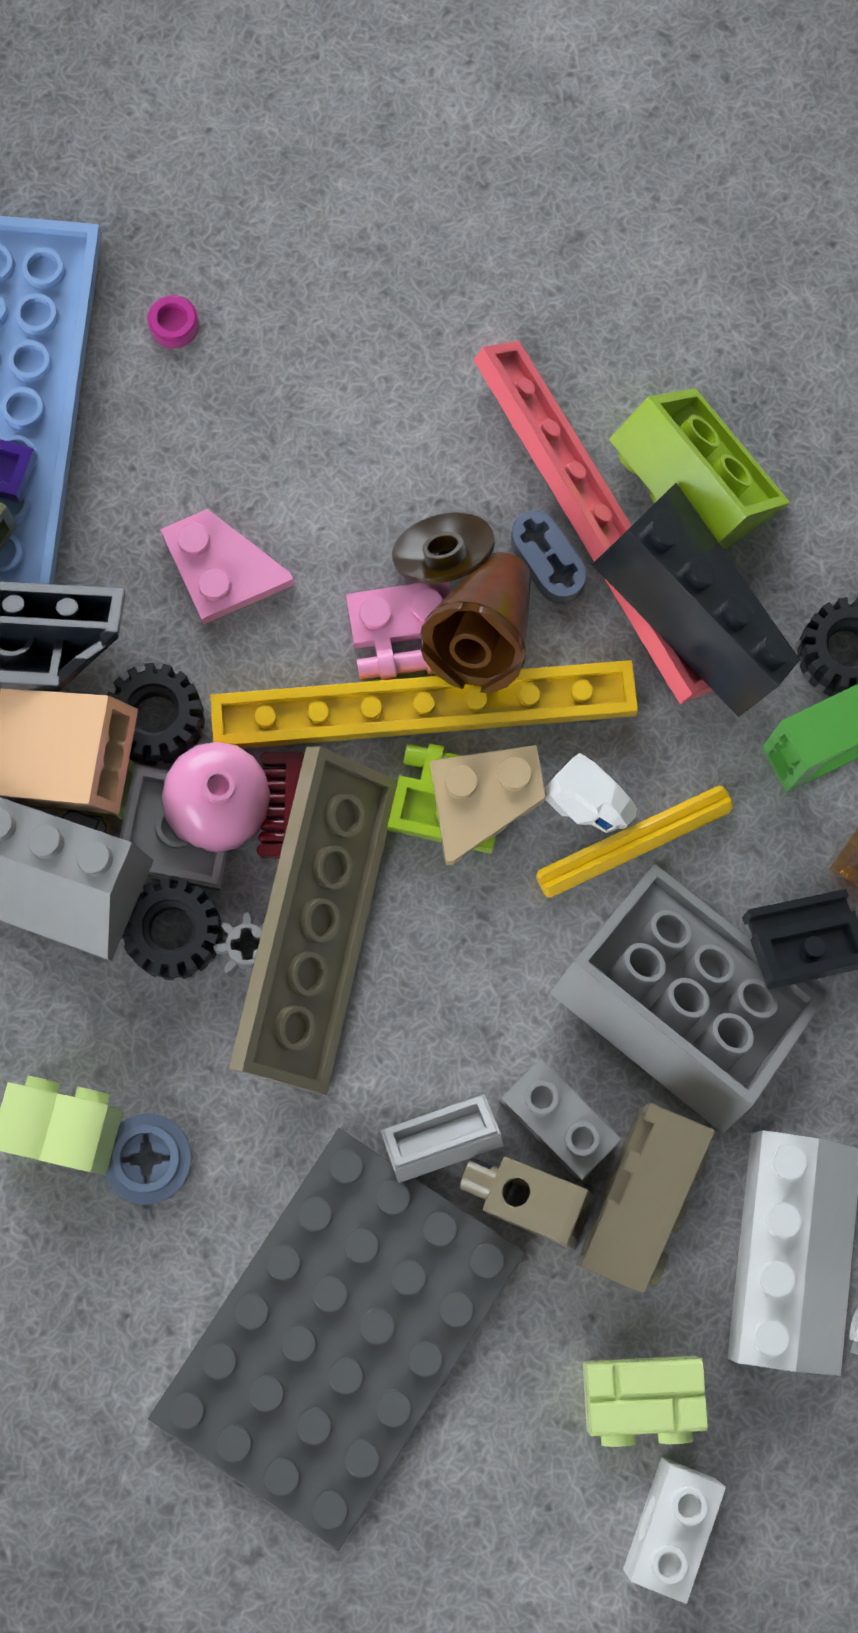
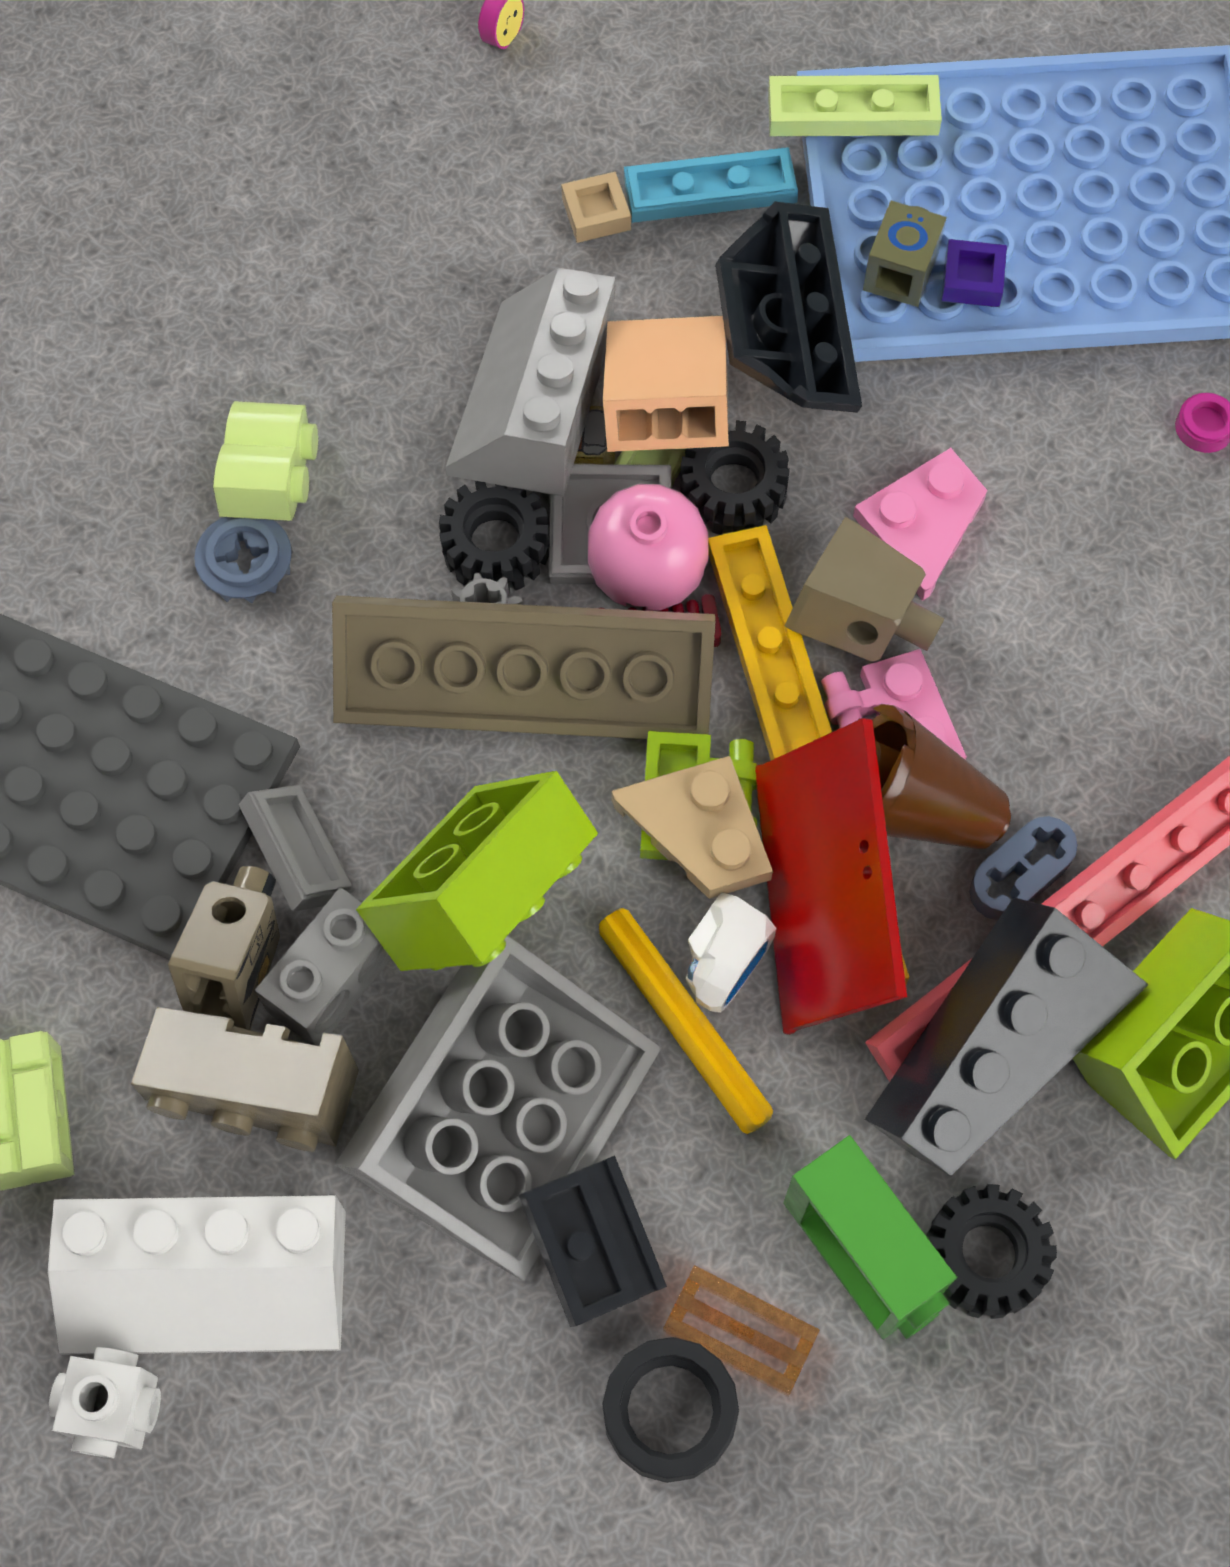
camera: 85 degrees right, 10 degrees down
(296, 628) = (863, 597): none -> dark tan torso
(443, 548) = (1000, 740): dark brown dish -> none
(512, 696) = (830, 879): none -> red container
(514, 977) = (479, 873): none -> lime brick

